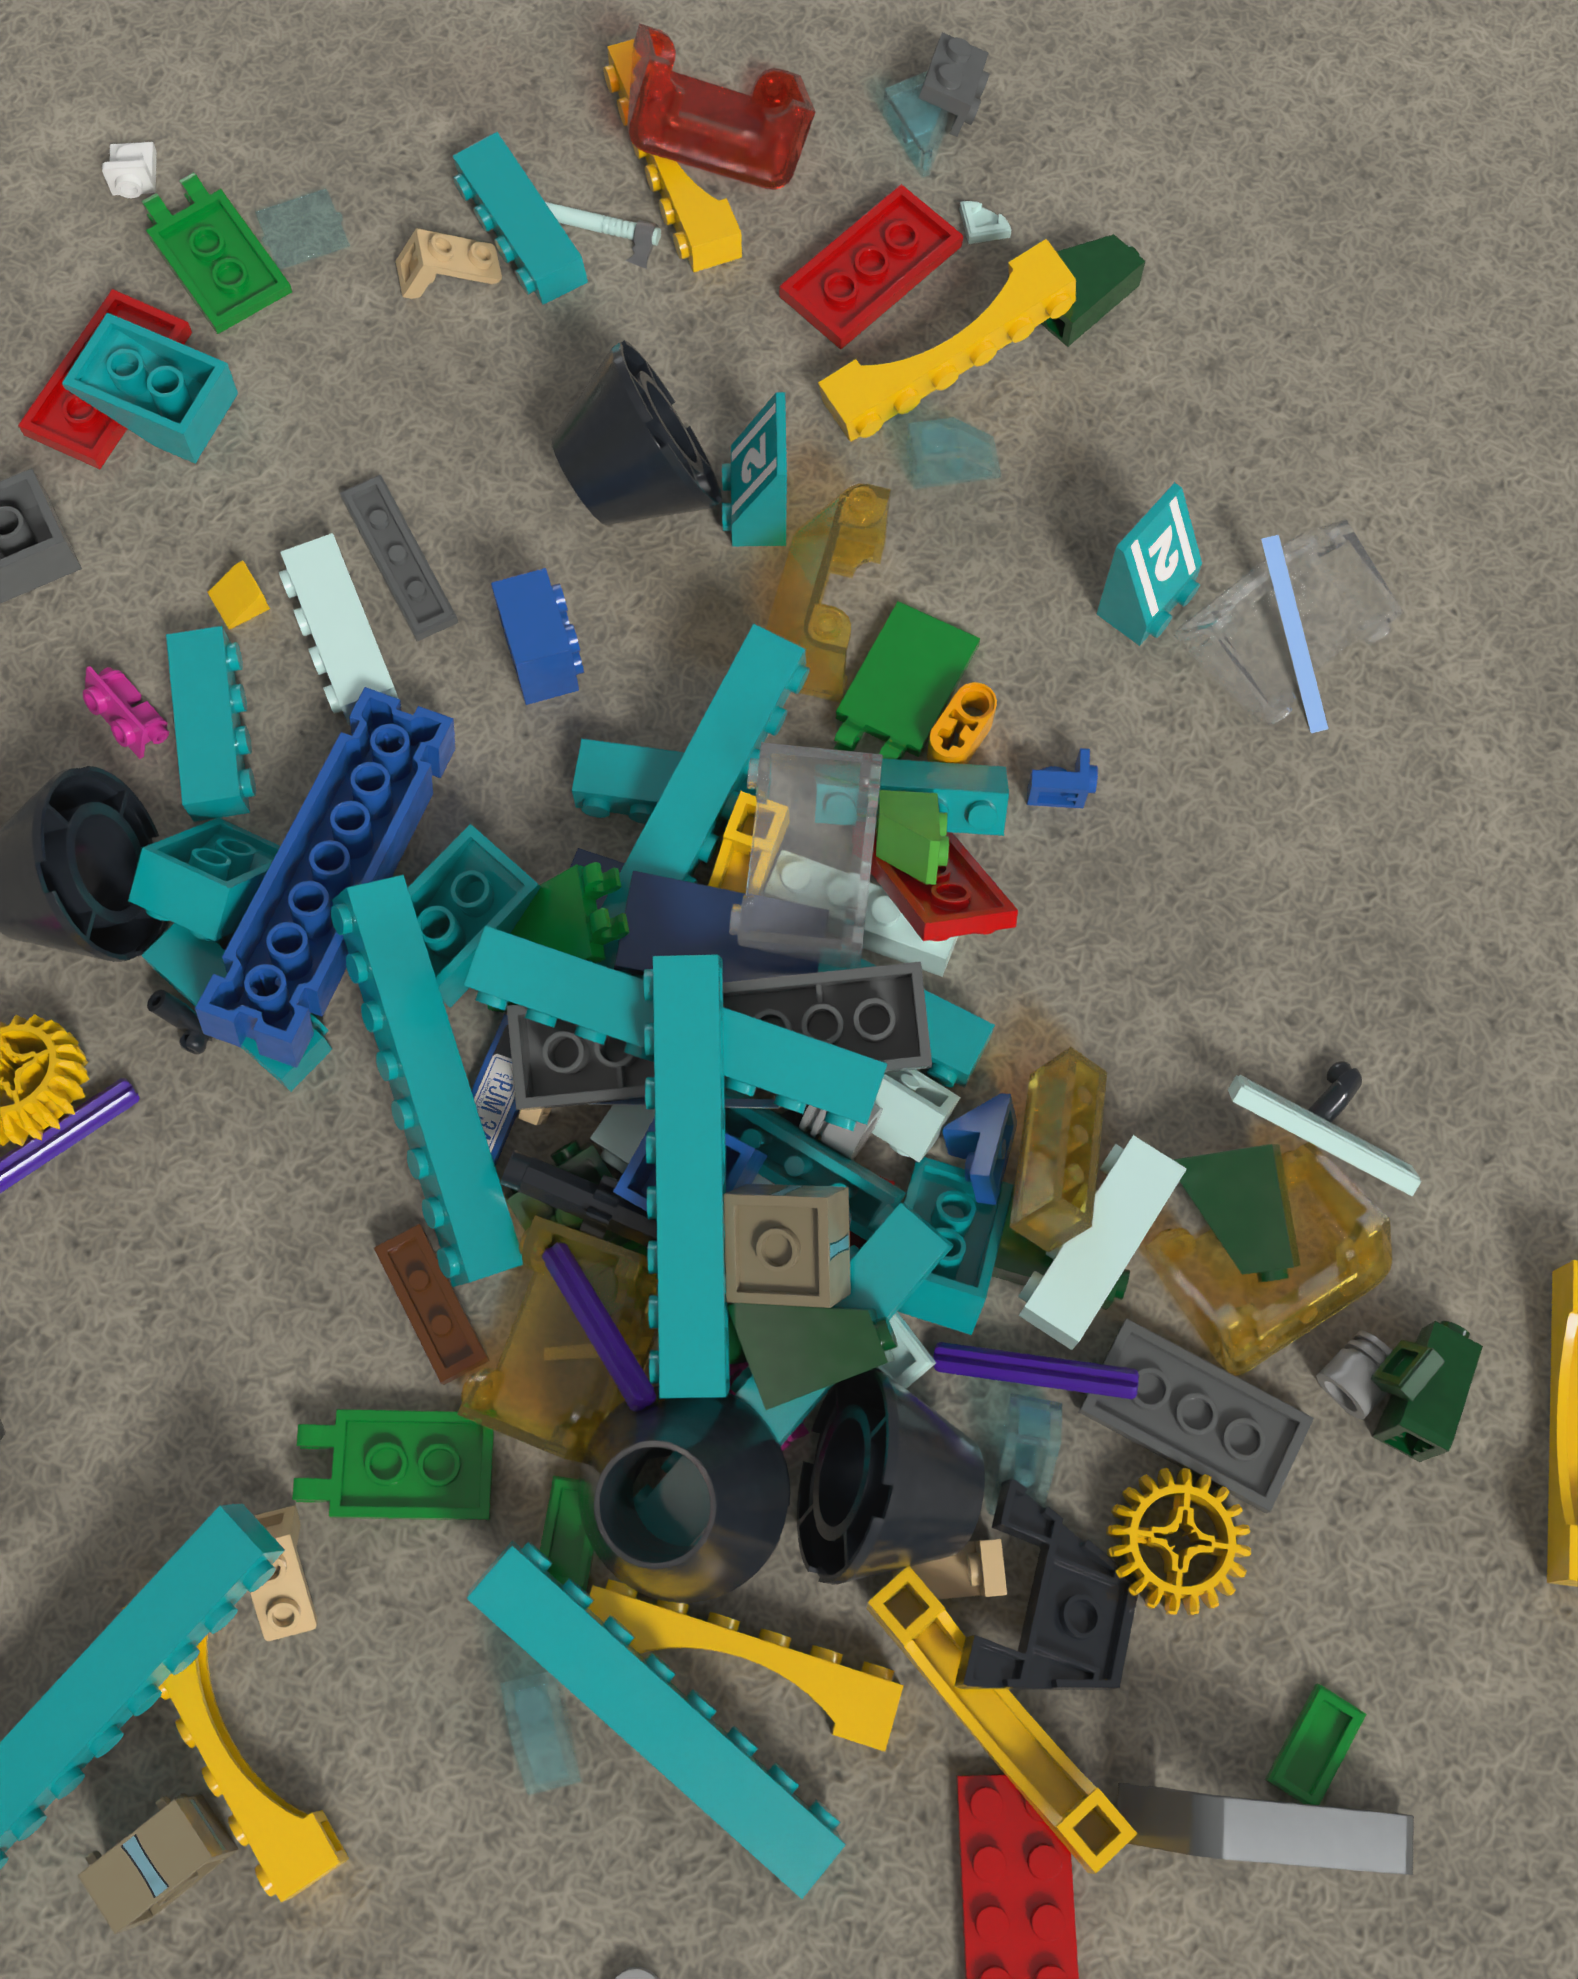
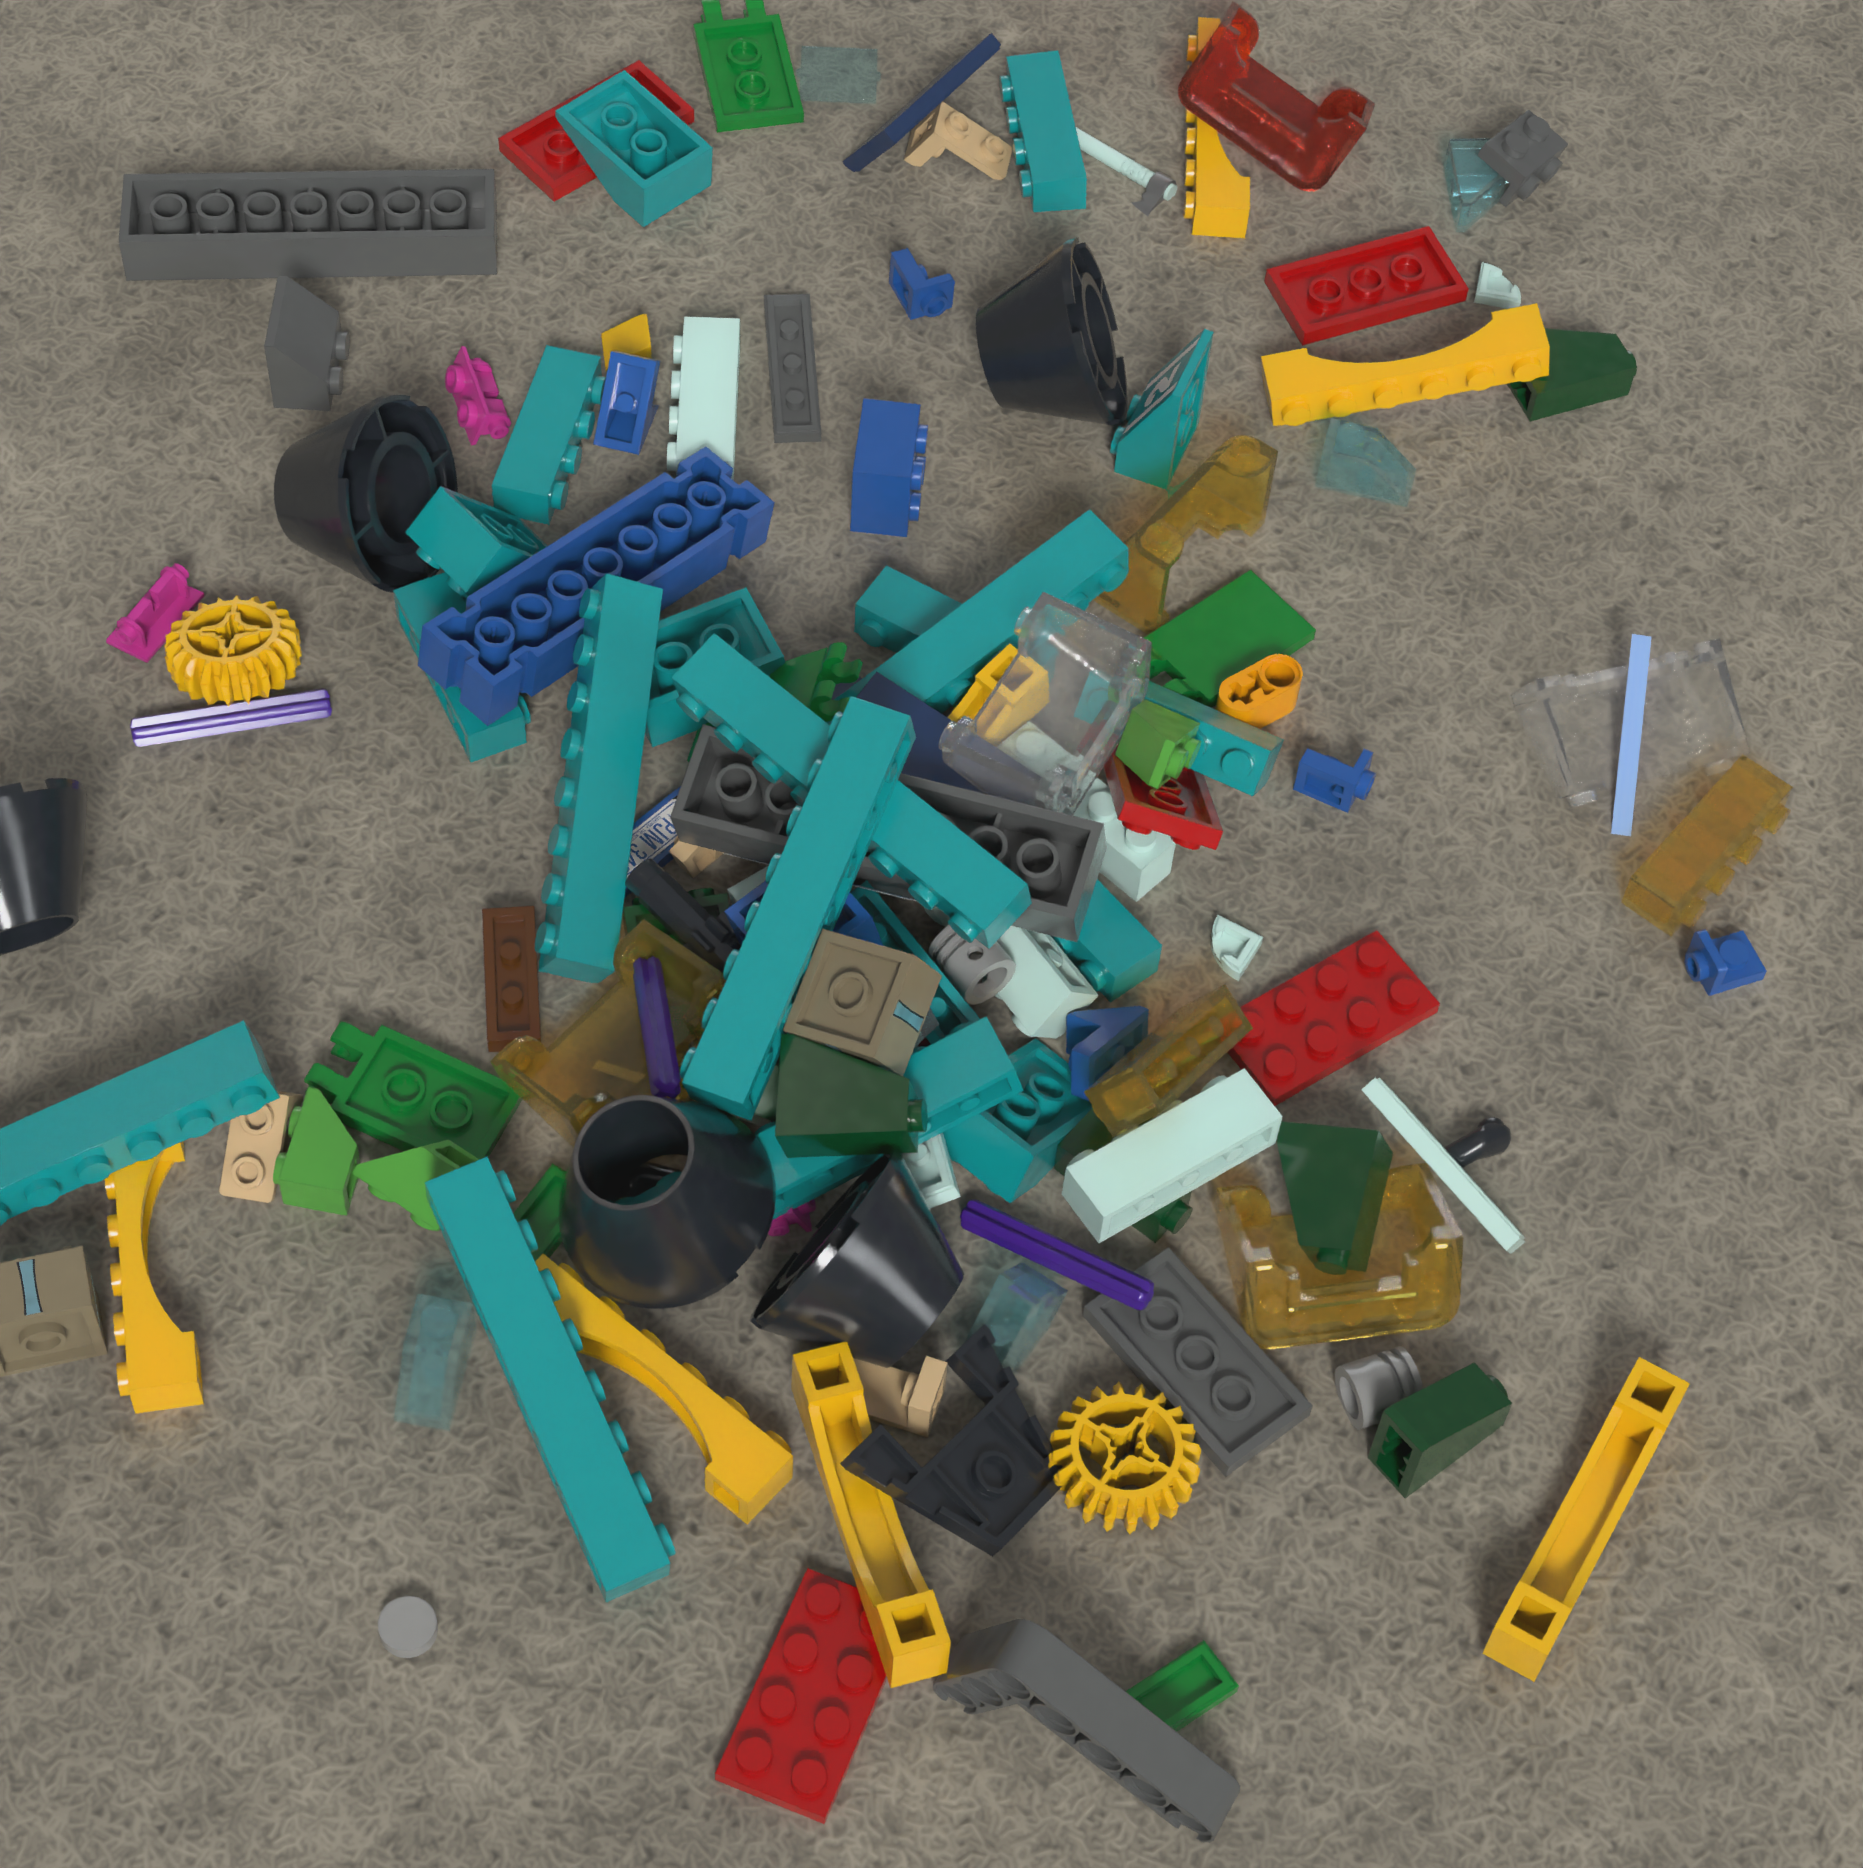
camera: 20 degrees right, 15 degrees down
(182, 1017) = (408, 675): black arm -> none
(267, 661) = (627, 402): none -> blue slope
(344, 1570) = (318, 1160): none -> bright green slope
(398, 236) = (922, 104): none -> dark blue tile
(446, 1549) = (403, 1176): none -> bright green slope
(475, 433) = (915, 290): none -> blue bracket
(1045, 986) = (1233, 946): none -> light aqua tile
(1152, 570) = (1509, 618): teal slope -> none
(1158, 1020) = (1330, 1017): none -> red plate
(1402, 716) = (1707, 845): none -> clear yellow brick
(1407, 1369) = (1418, 1377): dark green tile -> none
(1459, 823) = (1723, 961): none -> blue bracket

